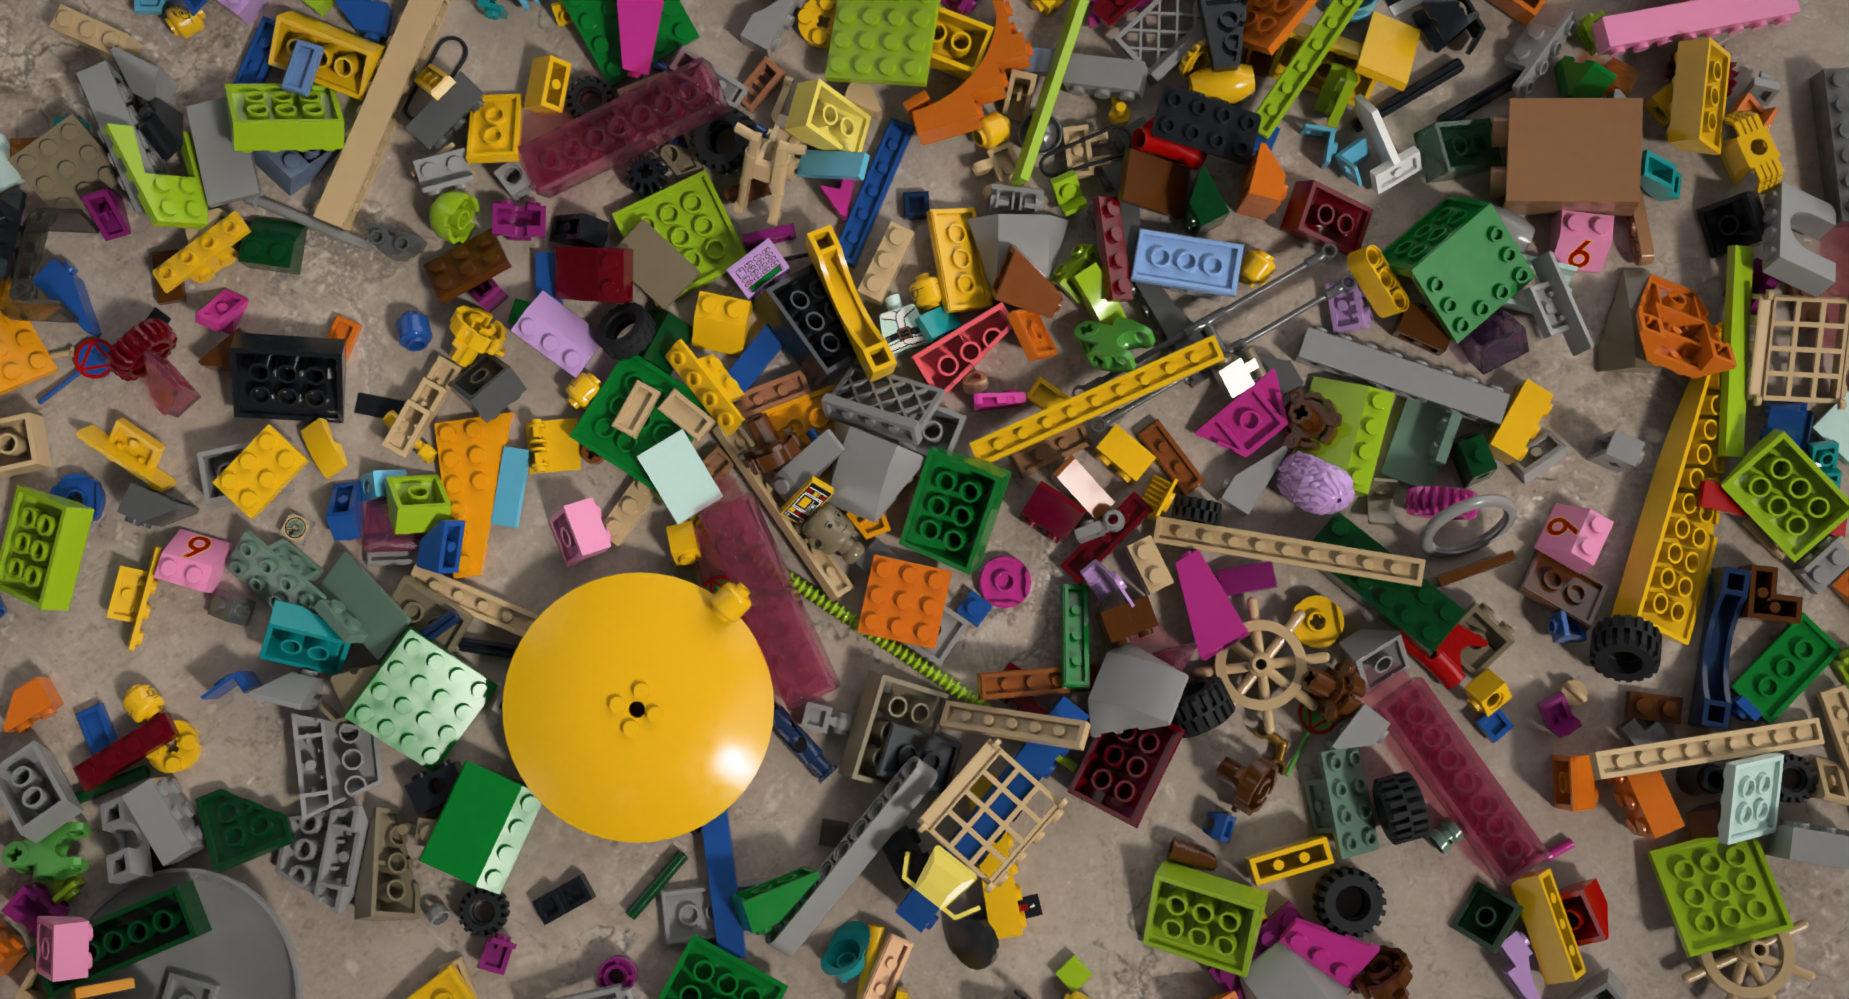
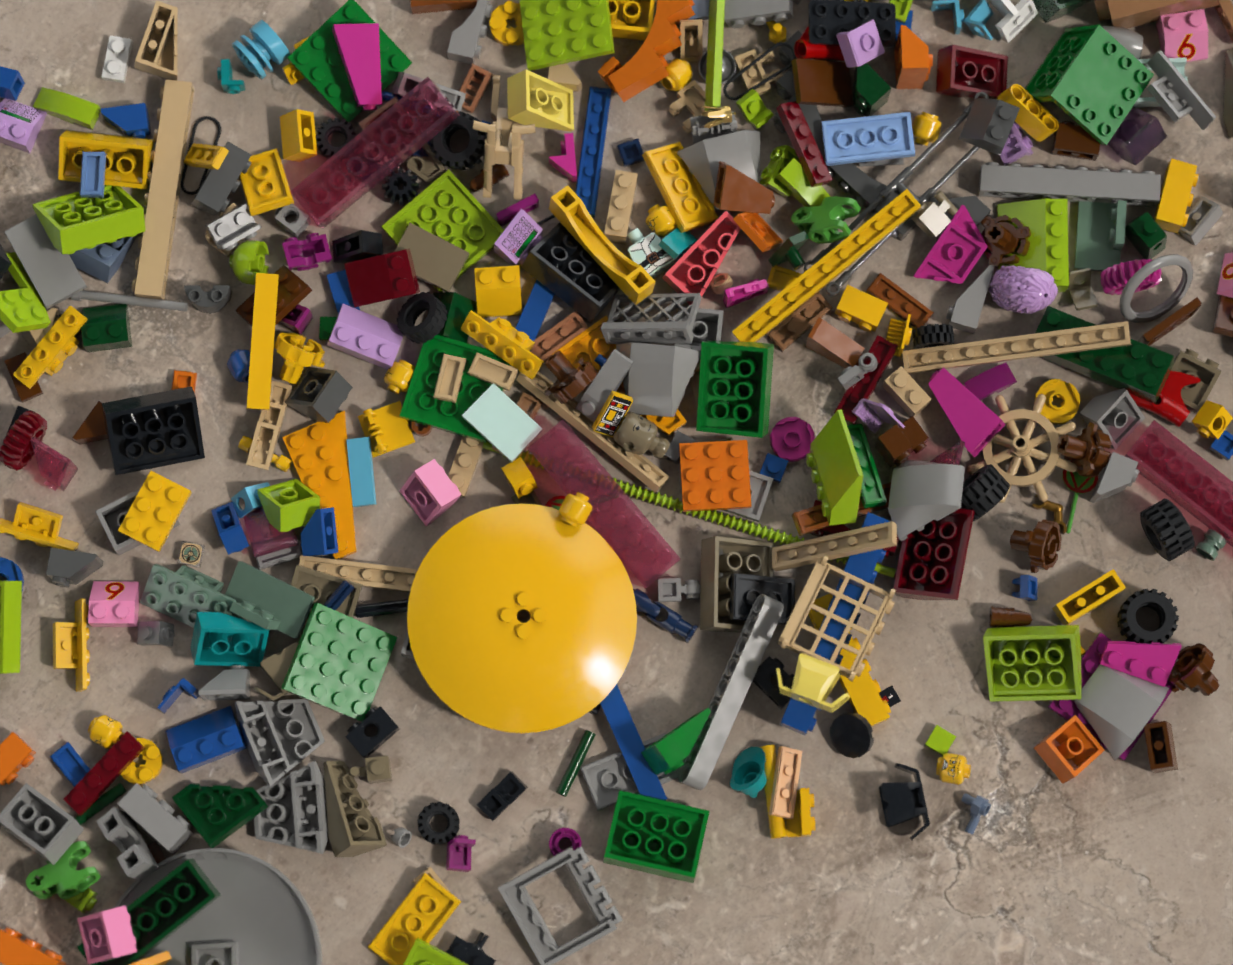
camera: 15 degrees left, 5 degrees down
(33, 902) = (63, 924): magenta cylinder -> none
(223, 312) = (79, 393): dark pink slope -> none
(250, 743) = (205, 739): none -> blue slope
(255, 63) = (47, 173): blue tile -> none
(322, 448) = (200, 484): yellow slope -> none
(377, 405) = (228, 436): black sticker -> none
(437, 310) = (262, 341): none -> yellow tile
(481, 827) = (420, 751): green slope -> none
(832, 832) = (708, 681): clear smoke tile -> none
(833, 165) = (555, 137): medium azure tile -> none
(1029, 189) = (724, 114): none -> pearl gold piece
(1040, 640) = (836, 471): none -> lime slope
(1052, 513) = (815, 369): dark red slope -> none
(1061, 368) = (789, 251): none -> dark green tile
(1209, 152) = (860, 44): none -> lavender piece
(1330, 284) = (989, 124): none -> dark grey slope
(1342, 803) = (1119, 541): sand green bracket -> none

